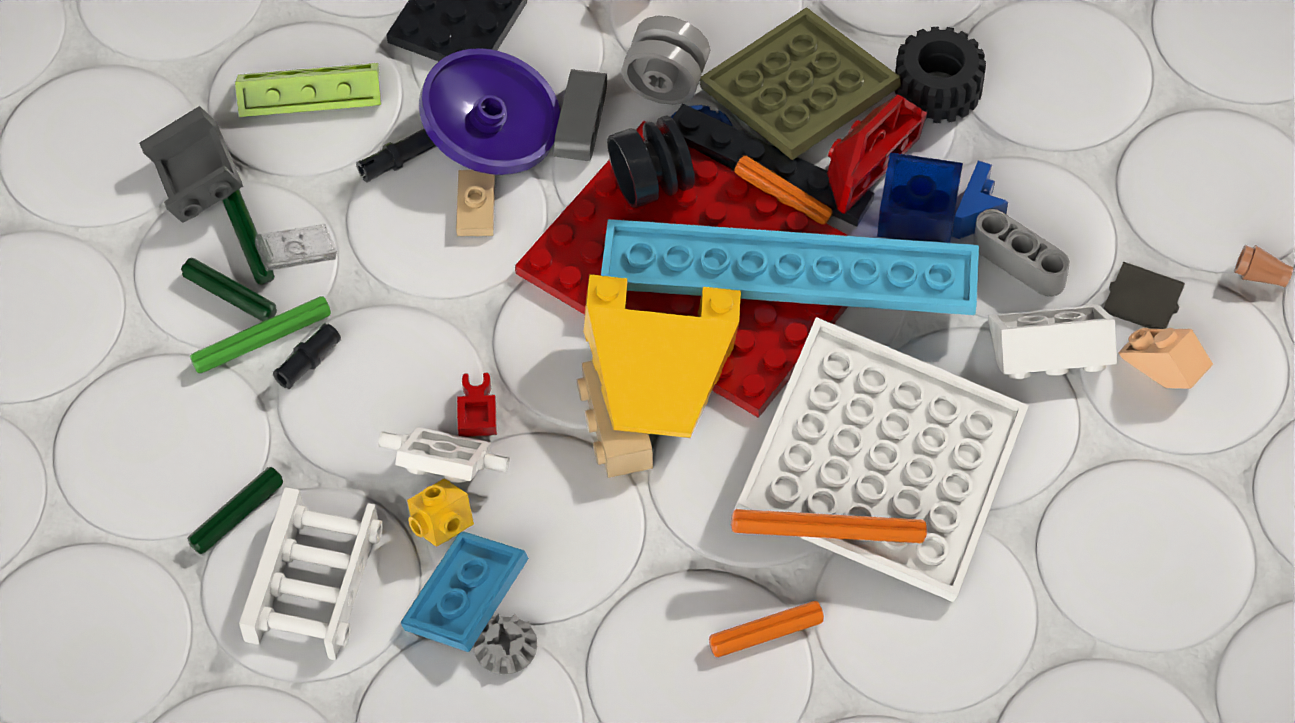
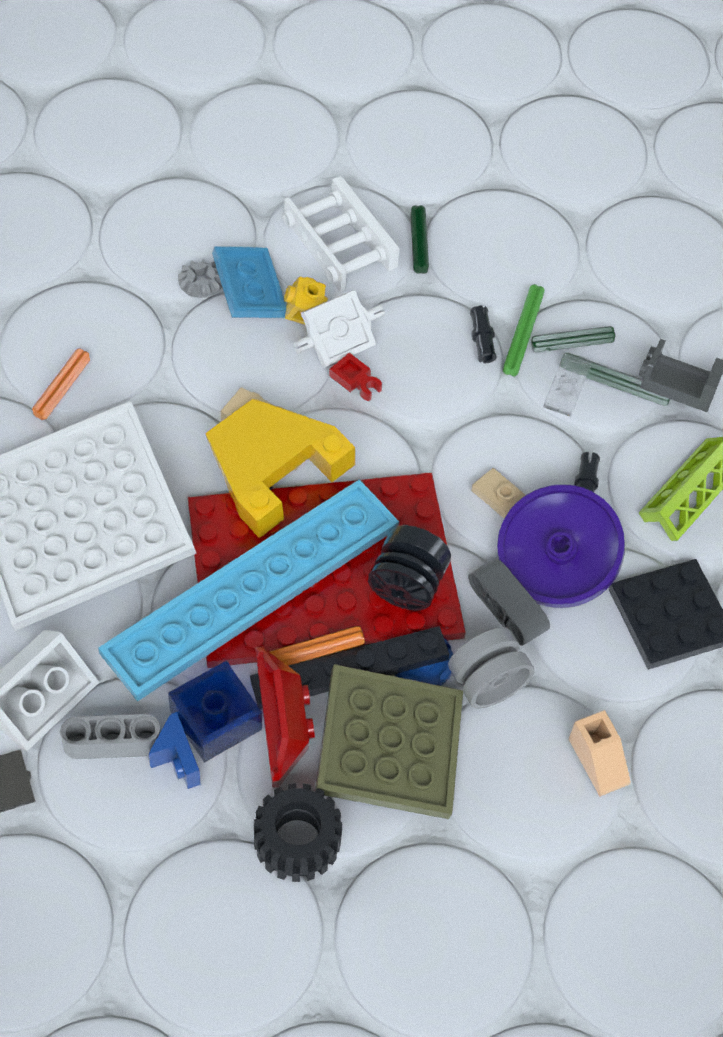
camera: 130 degrees right, 0 degrees up
(828, 526) = (62, 431): orange axle -> none

